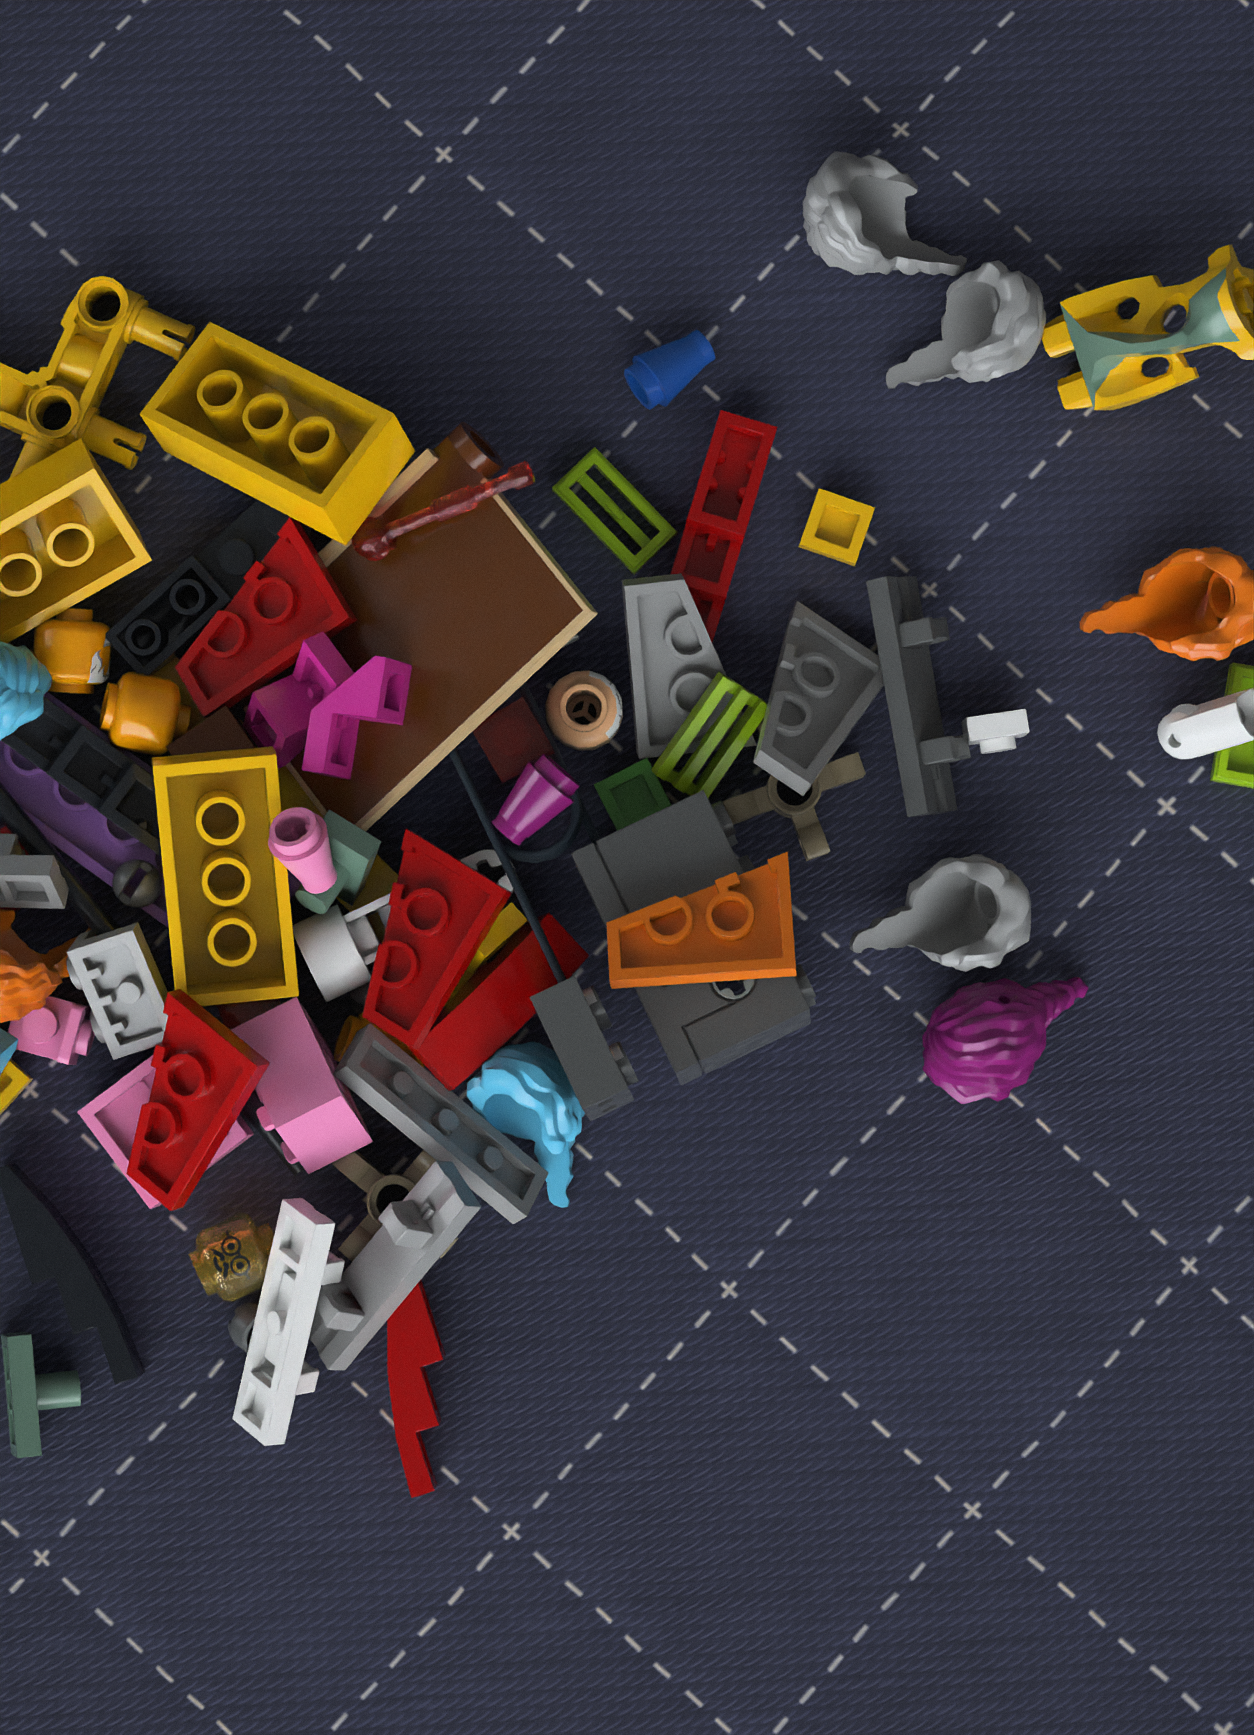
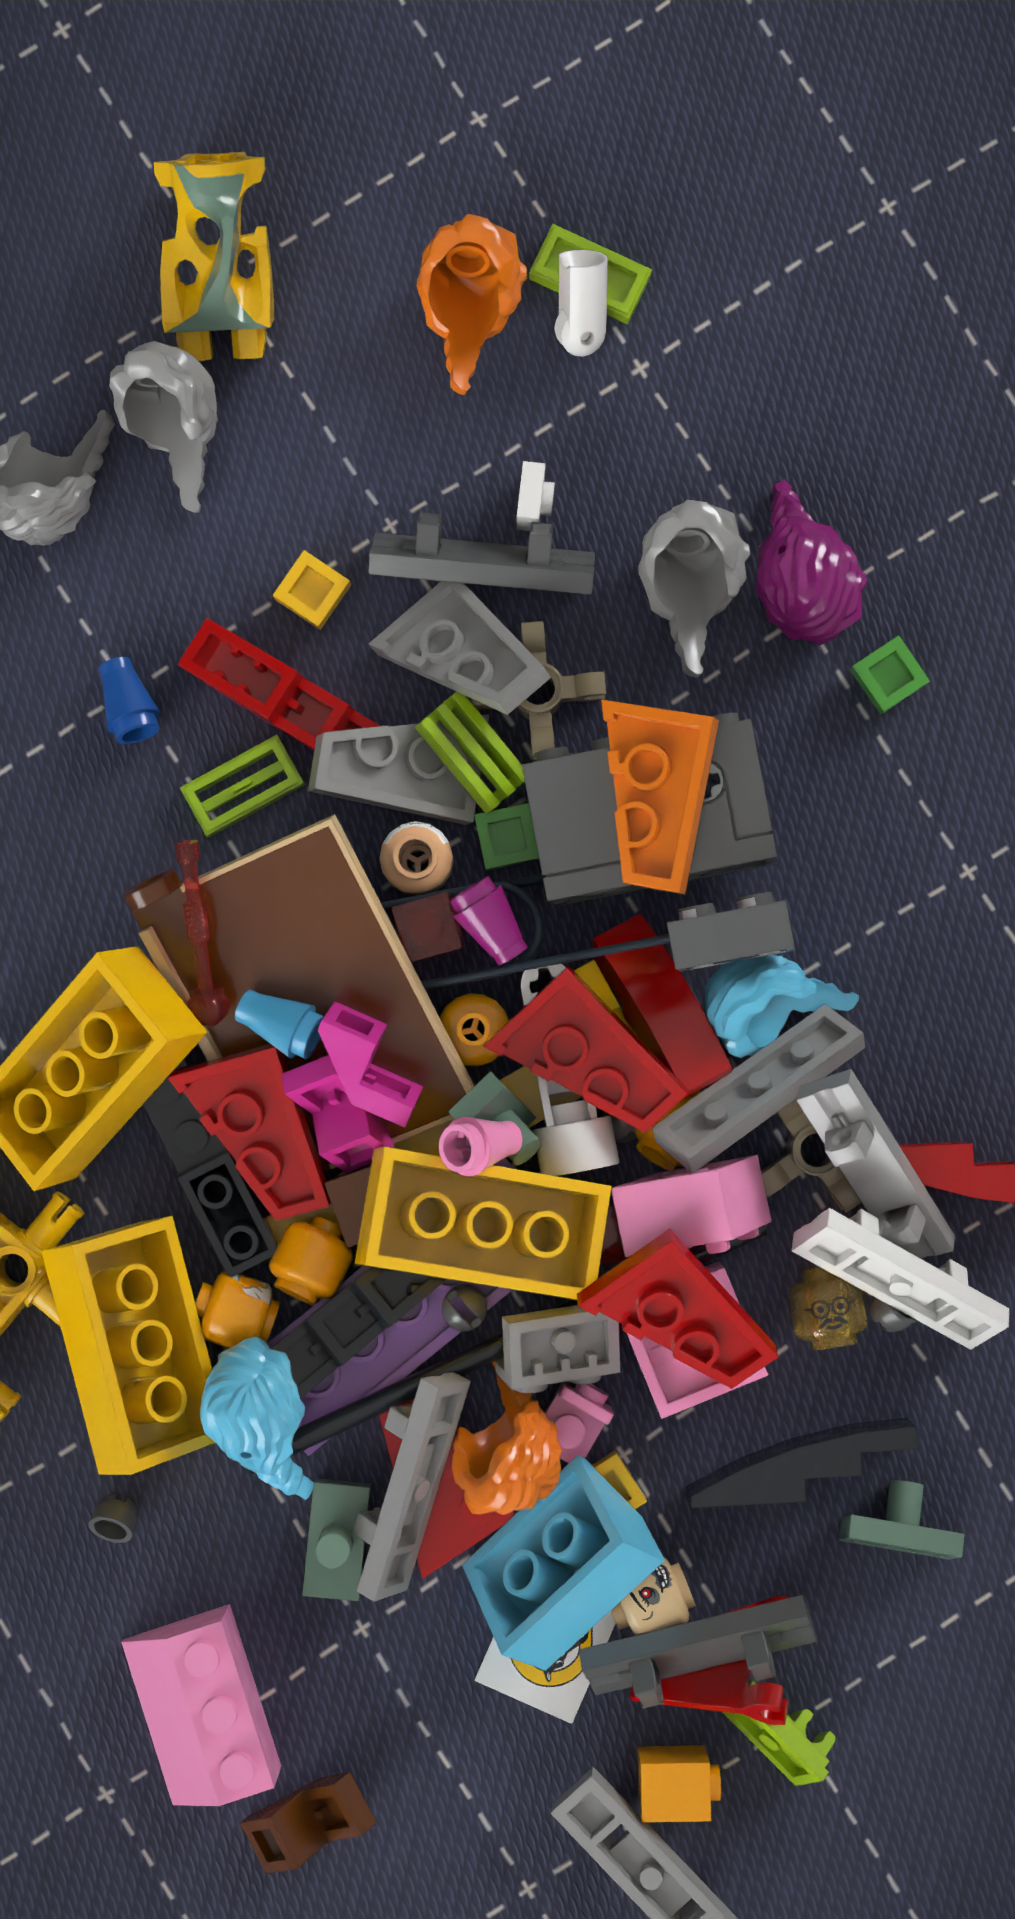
camera: 70 degrees left, 0 degrees up
(375, 617) = (281, 1022): none -> dark azure cone
(447, 814) = (477, 1008): none -> light orange head
(910, 1150) = (889, 675): none -> bright green plate

